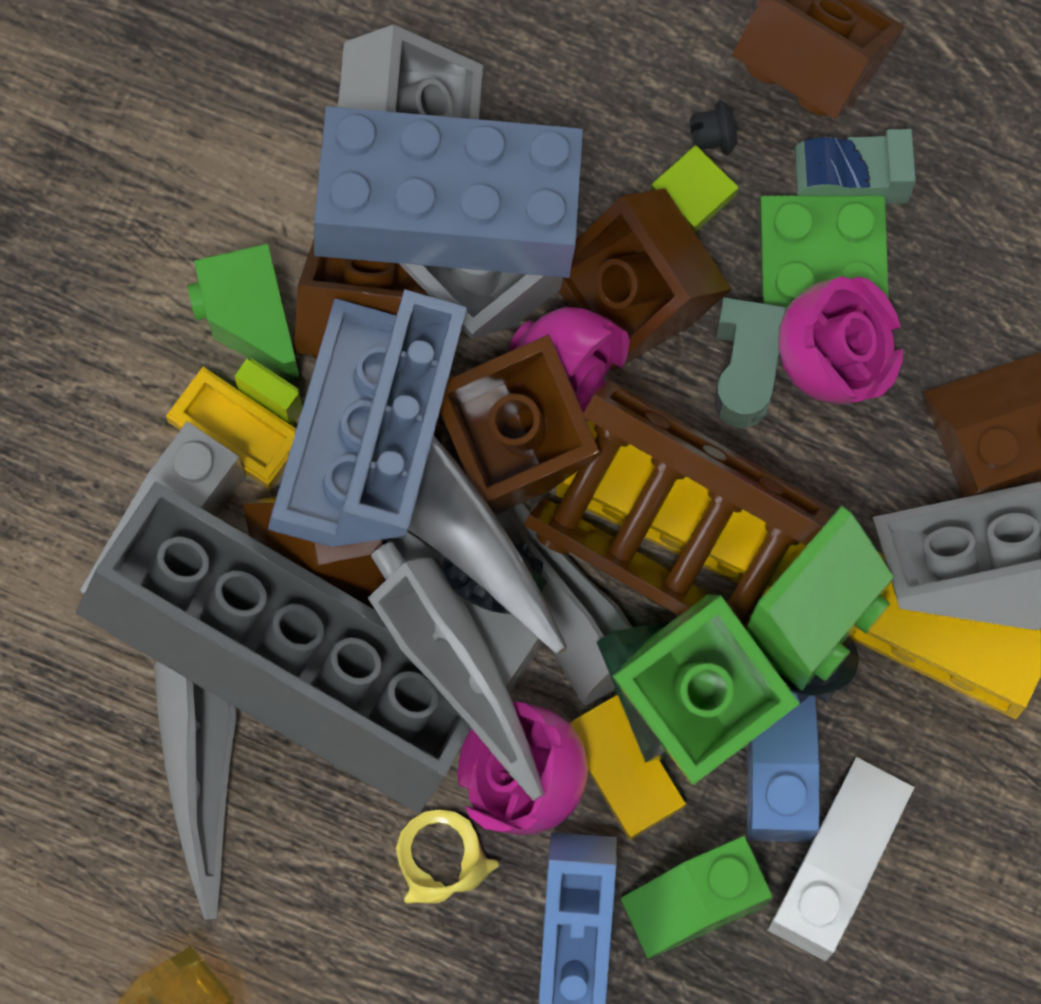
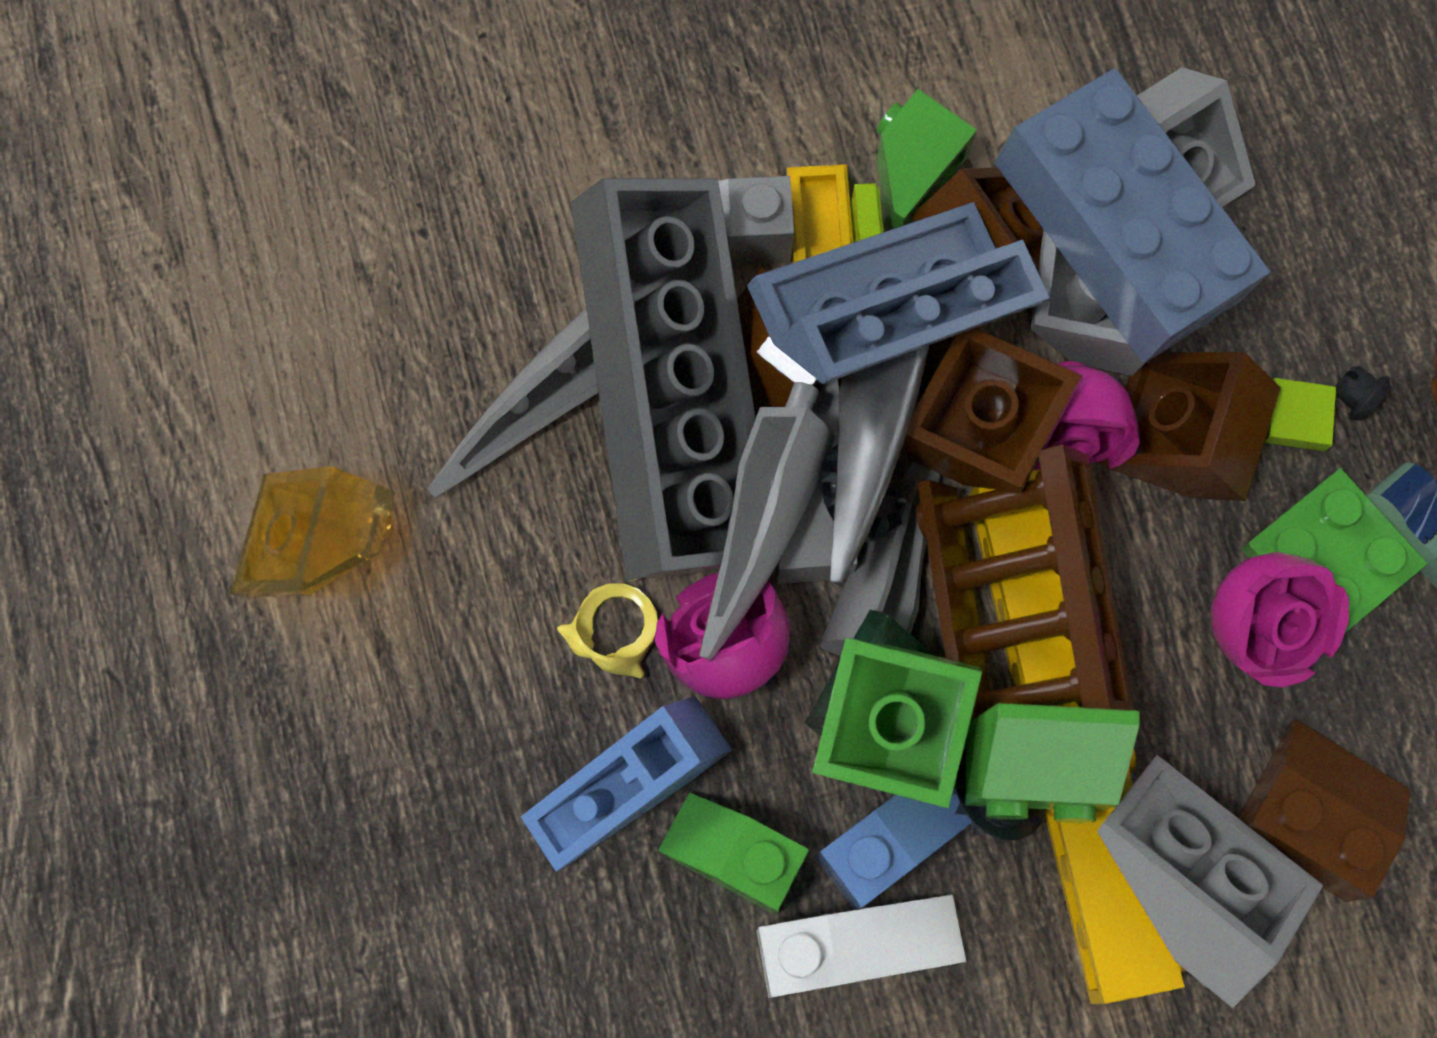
camera: 50 degrees right, 0 degrees up
(634, 790) = (781, 740): yellow tile -> none
(749, 379) = (1185, 571): sand green leg -> none

